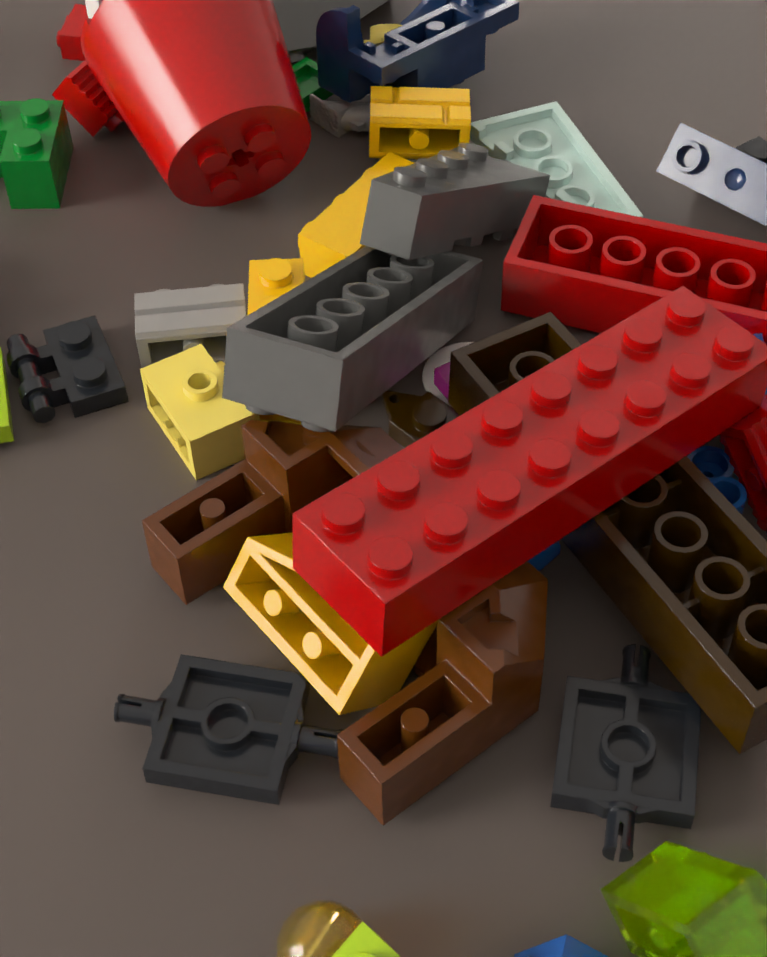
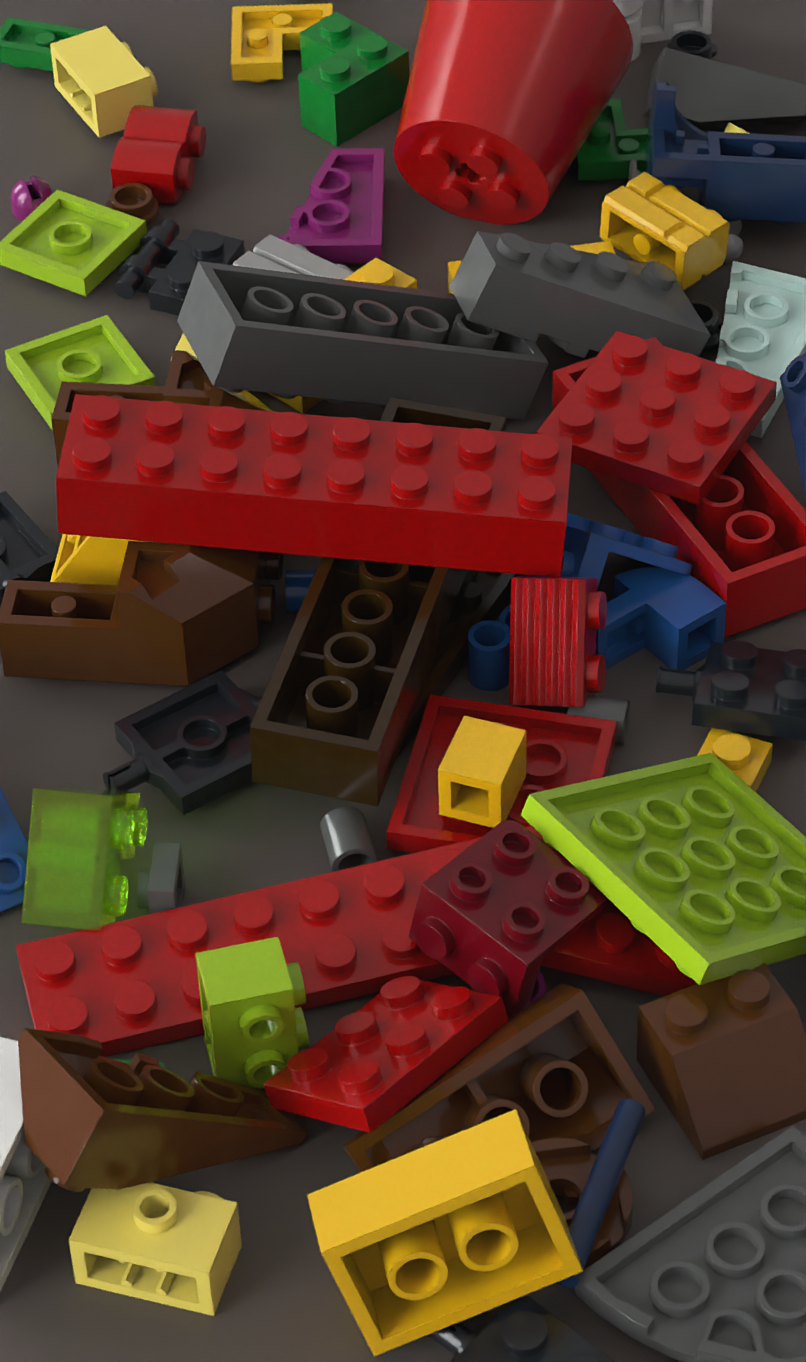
camera: 45 degrees right, 5 degrees down
(97, 506) = (77, 354): none -> lime plate
(143, 246) = (344, 208): none -> magenta wing
(627, 247) = (659, 416): none -> red plate

